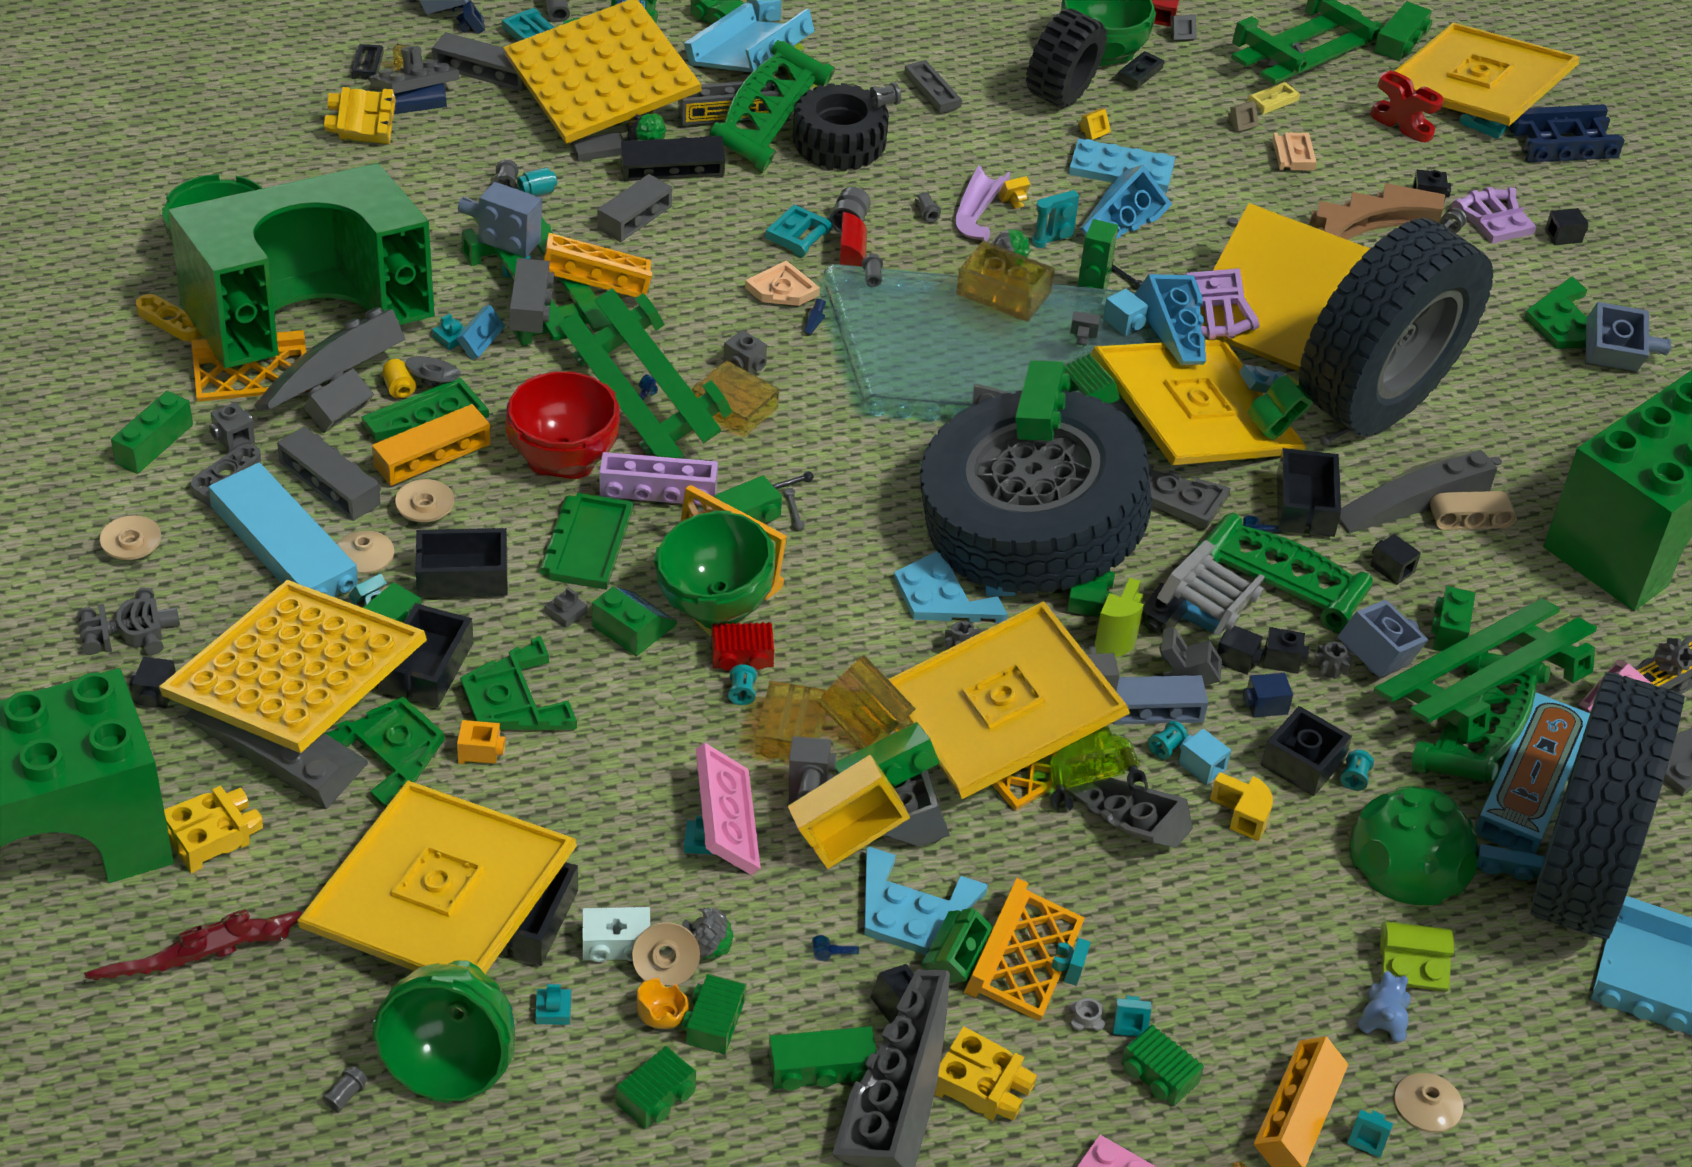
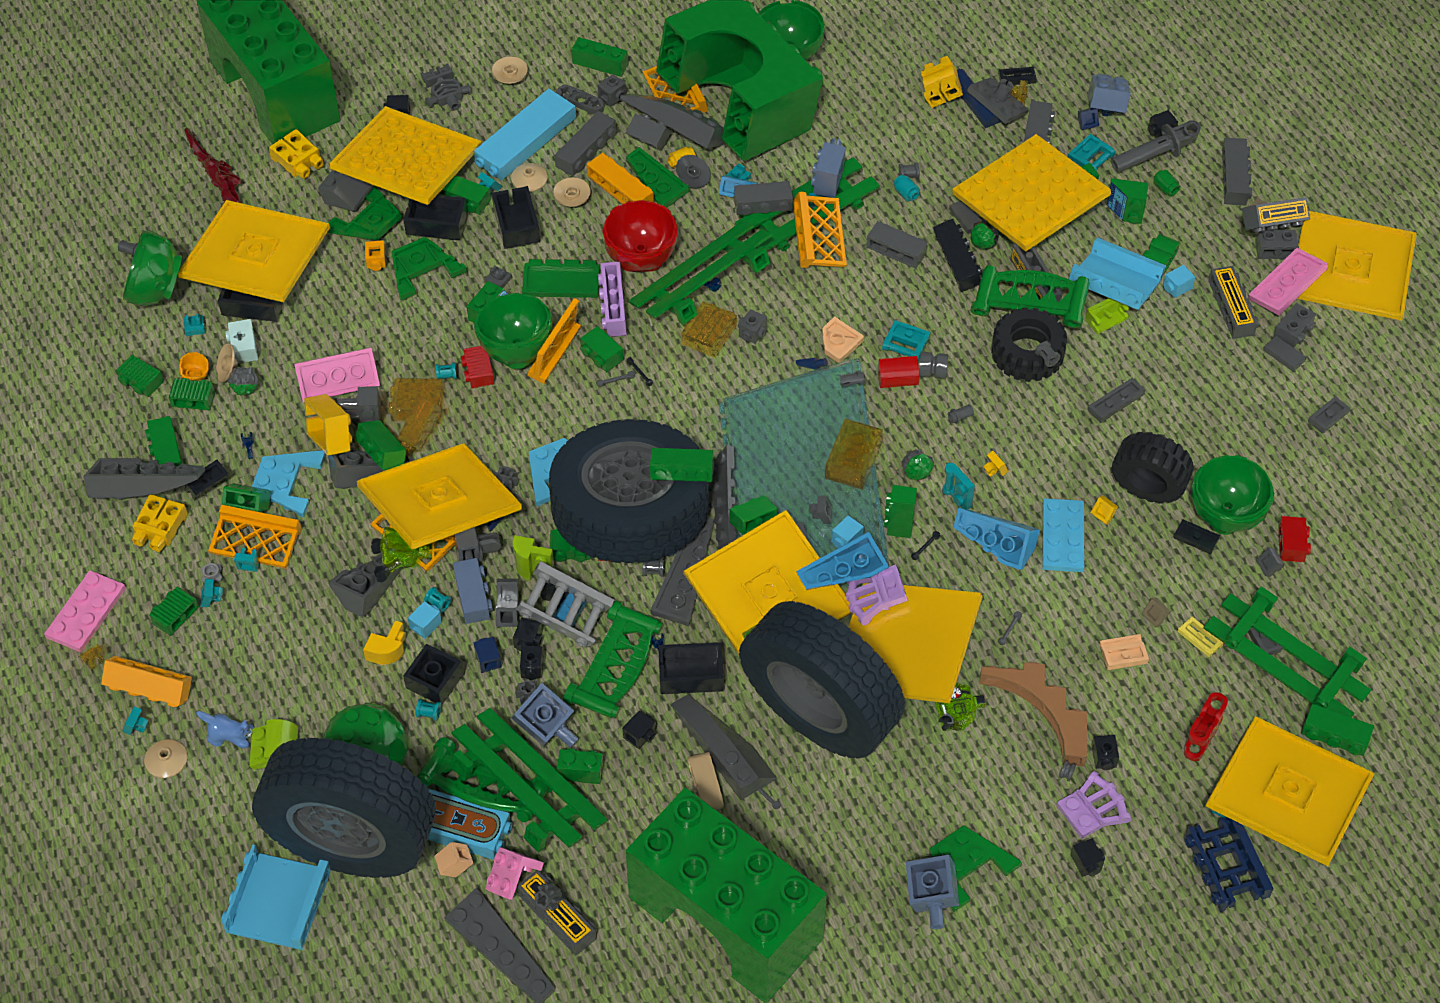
camera: 85 degrees right, 10 degrees up
(976, 198) = (1003, 446): lavender animal -> none

